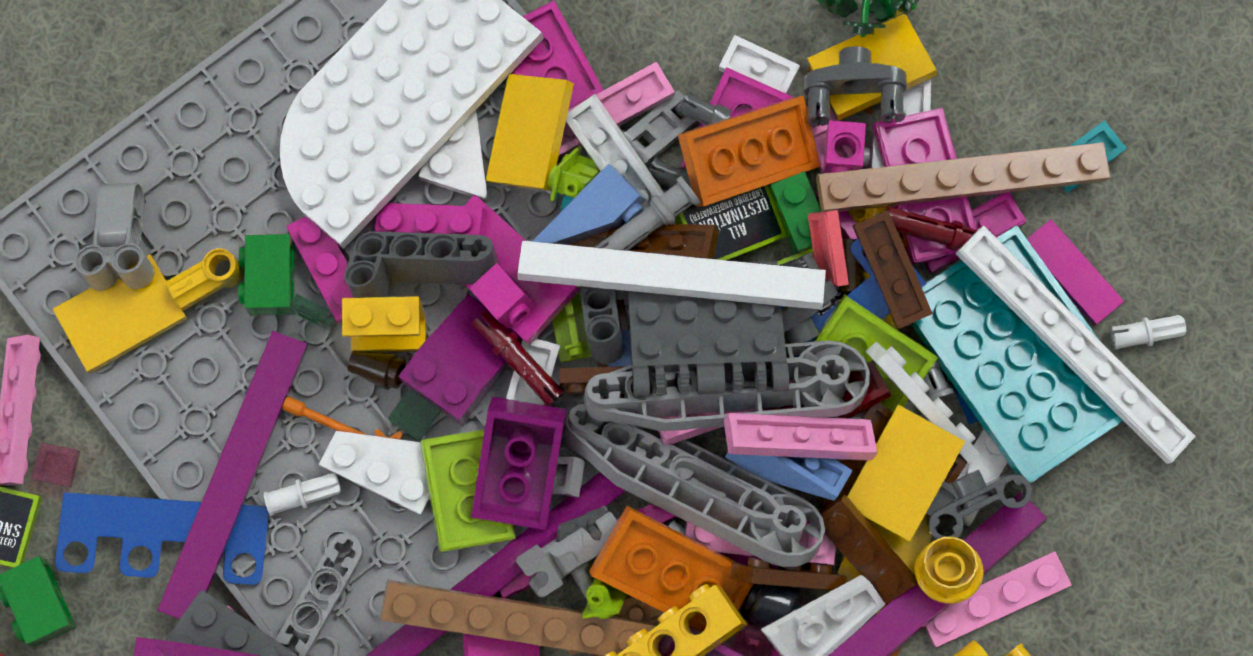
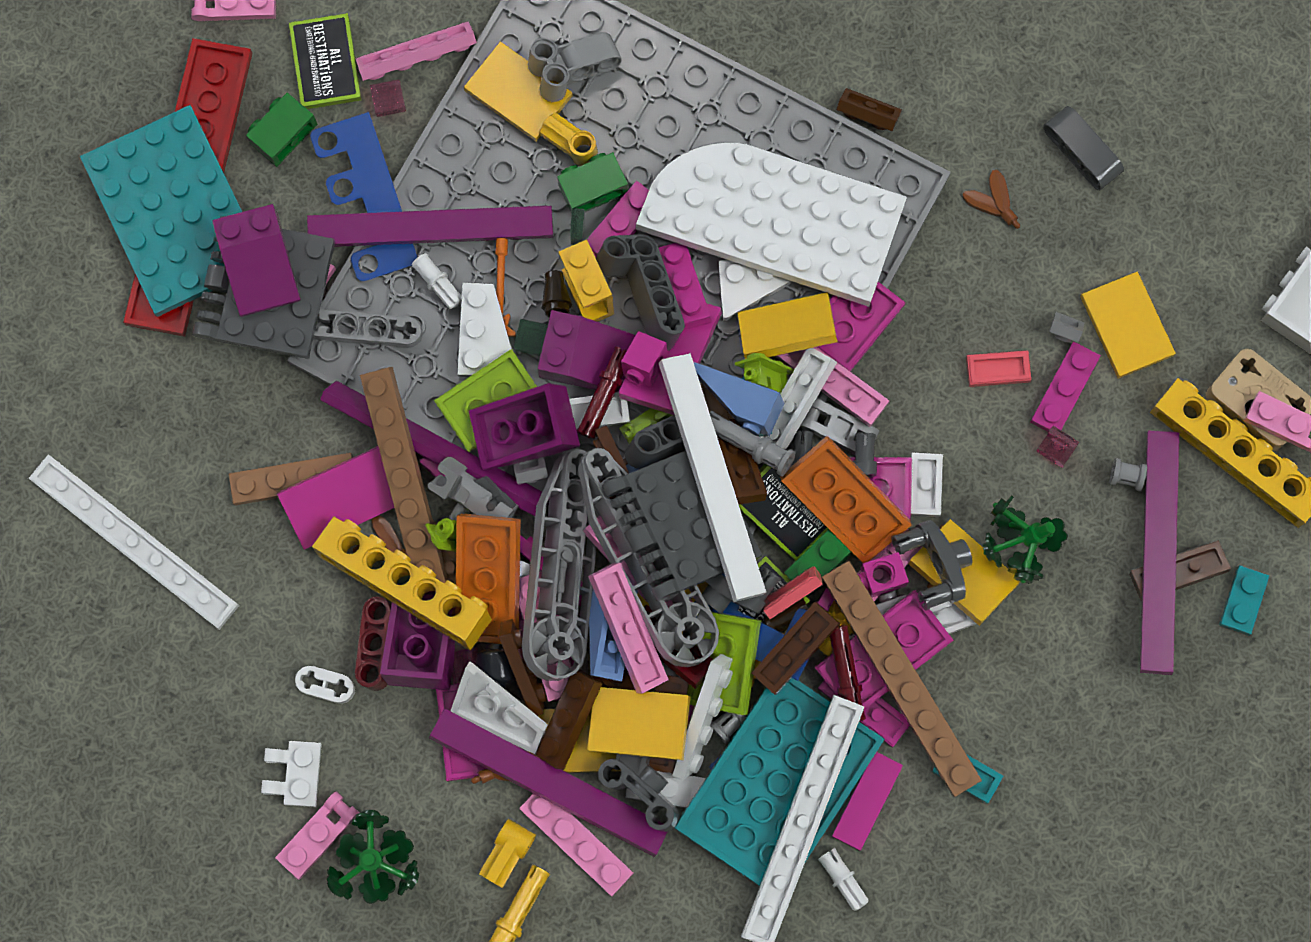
camera: 70 degrees right, 0 degrees up
(949, 570) = (577, 790): yellow piece -> none

